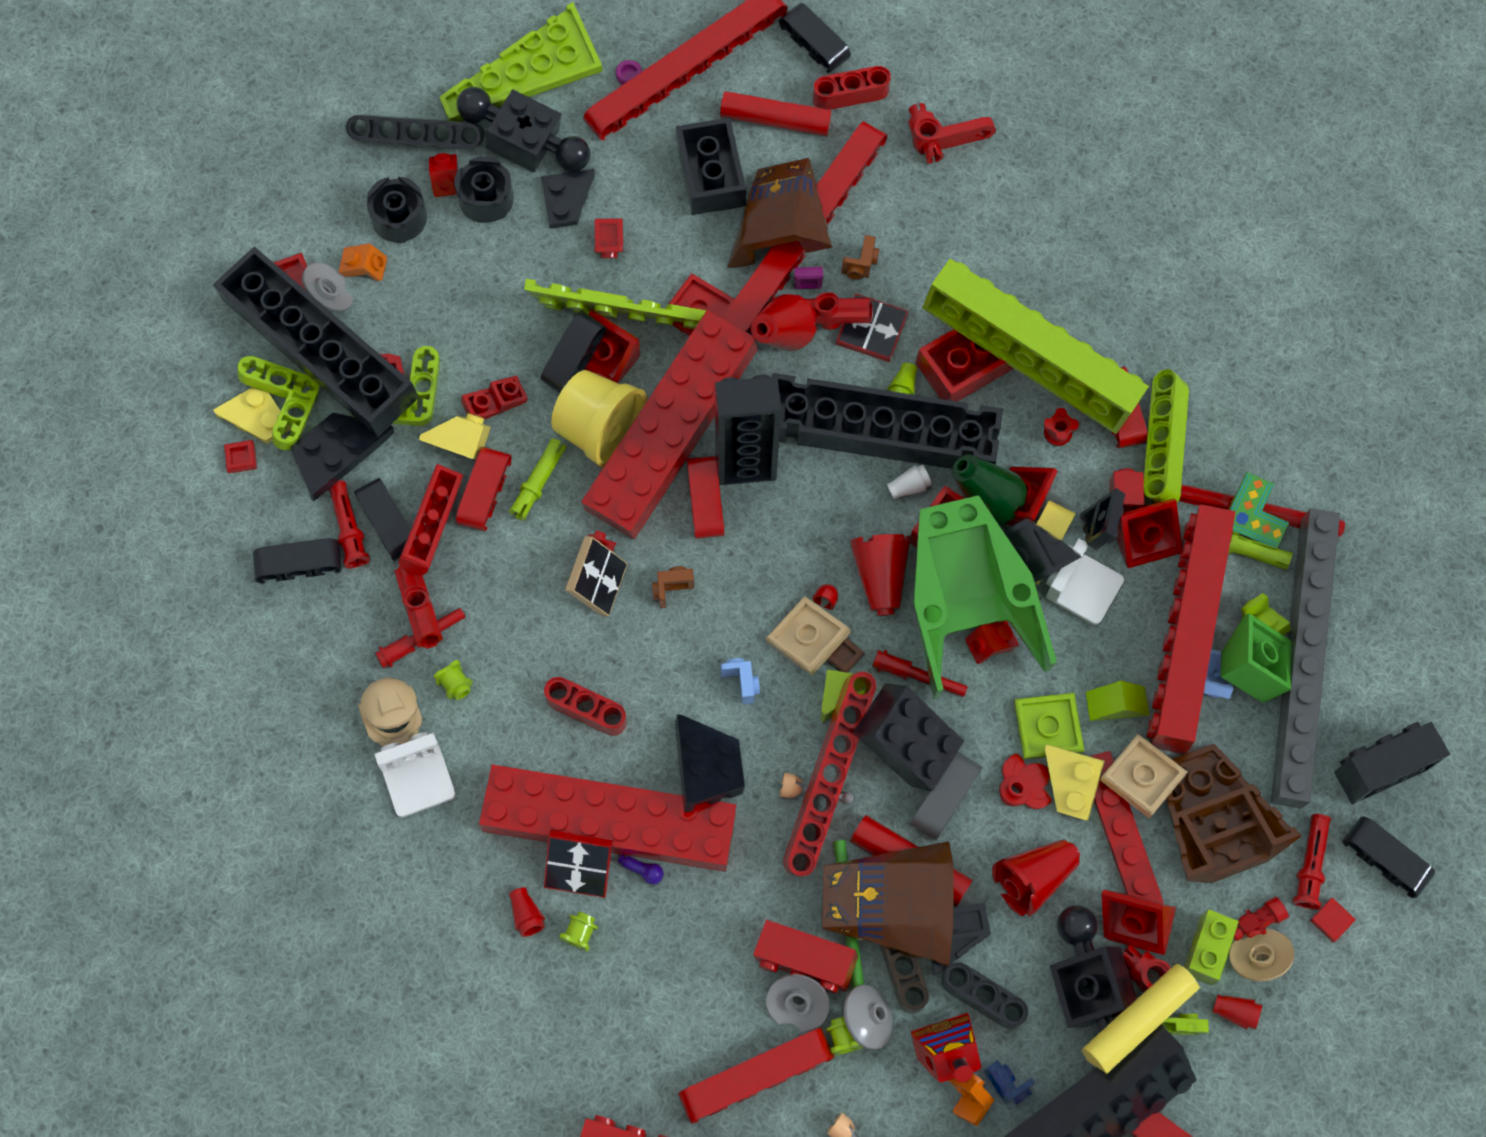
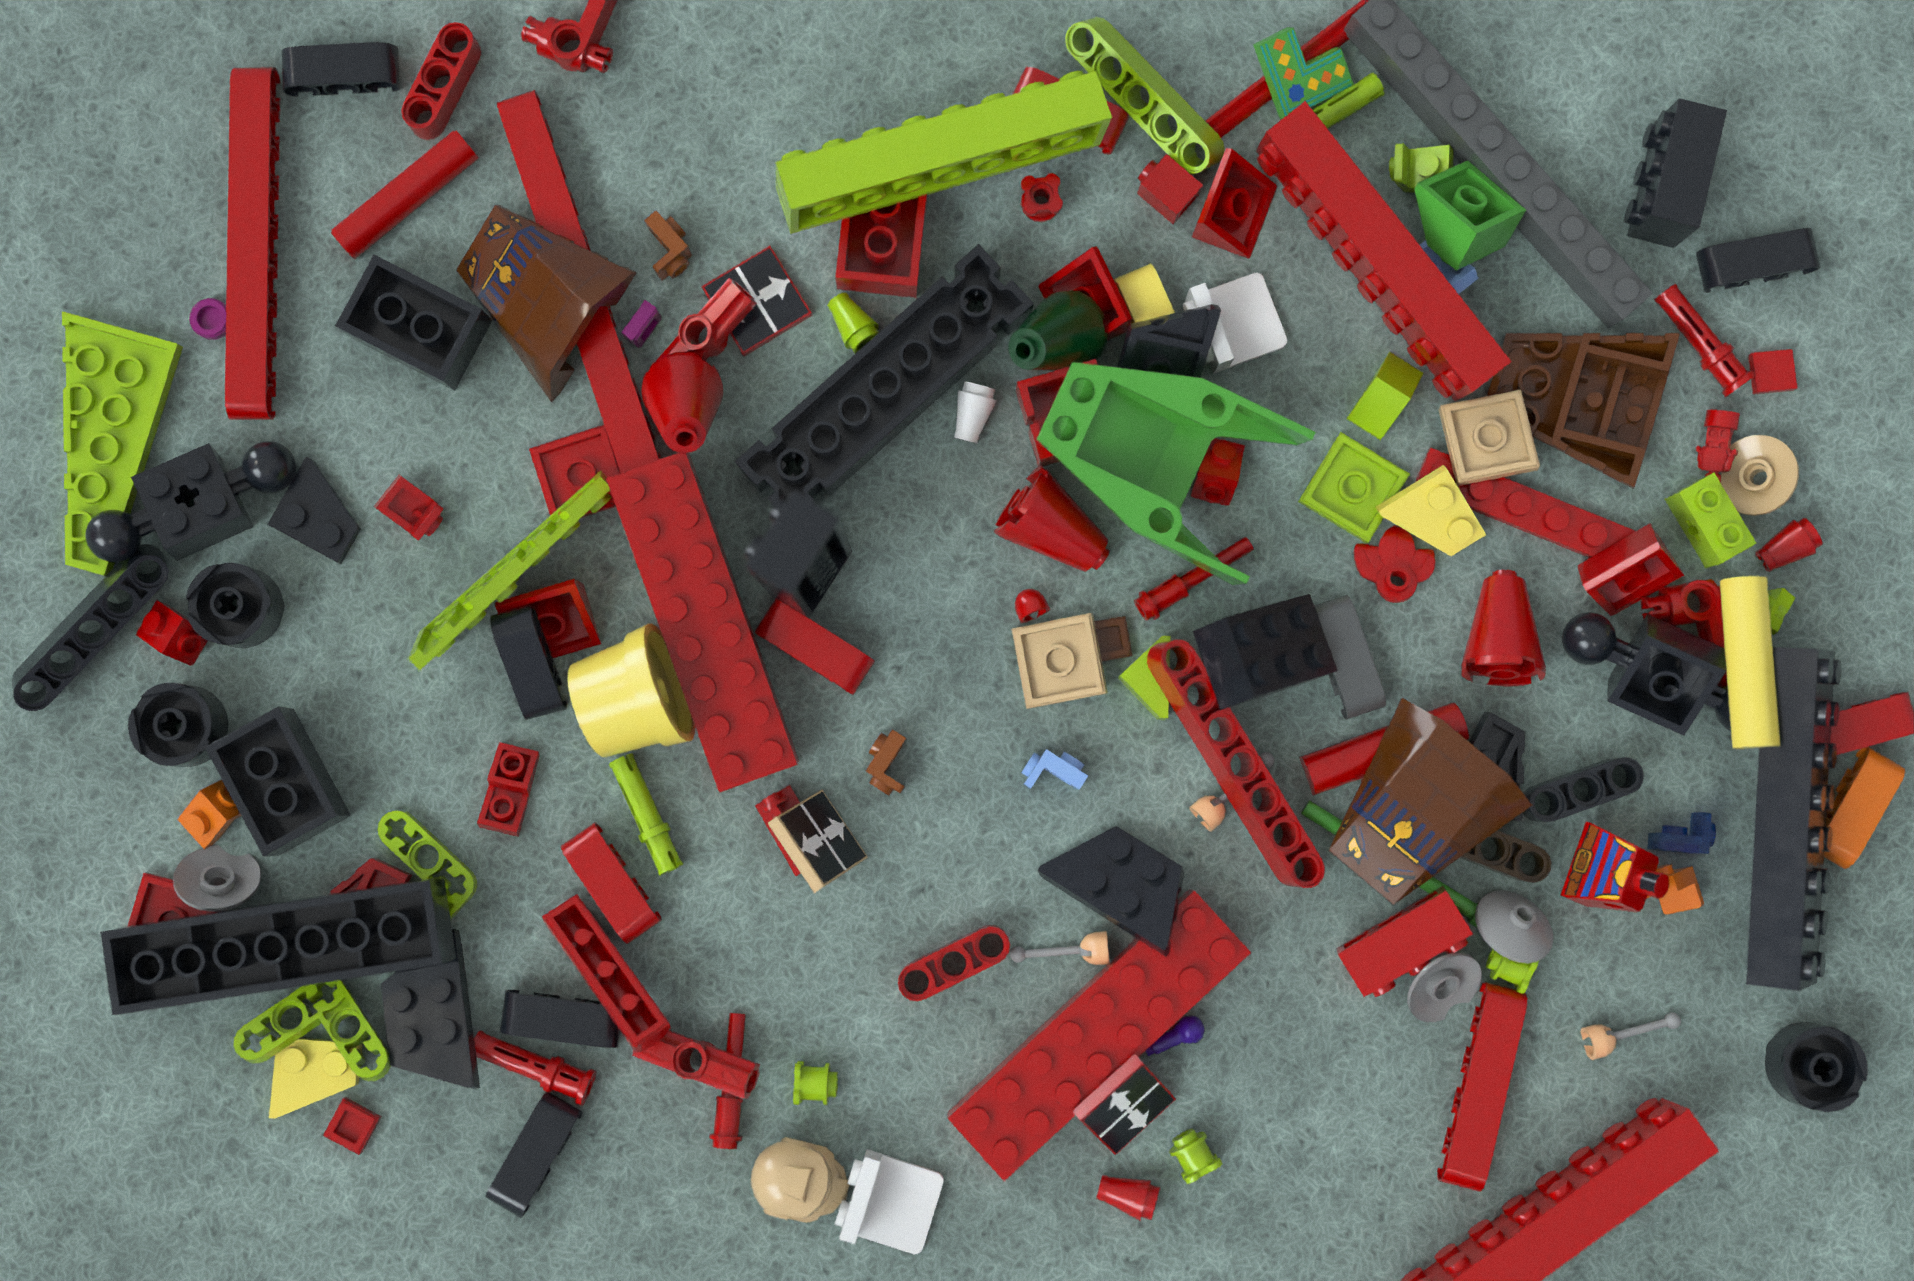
camera: 50 degrees left, 15 degrees up
(405, 278) = (277, 781): none -> black brick
(459, 435) = (527, 865): light yellow slope -> none
(654, 779) = (1092, 949): none -> hinge
(1103, 519) = (1189, 245): black wing -> none

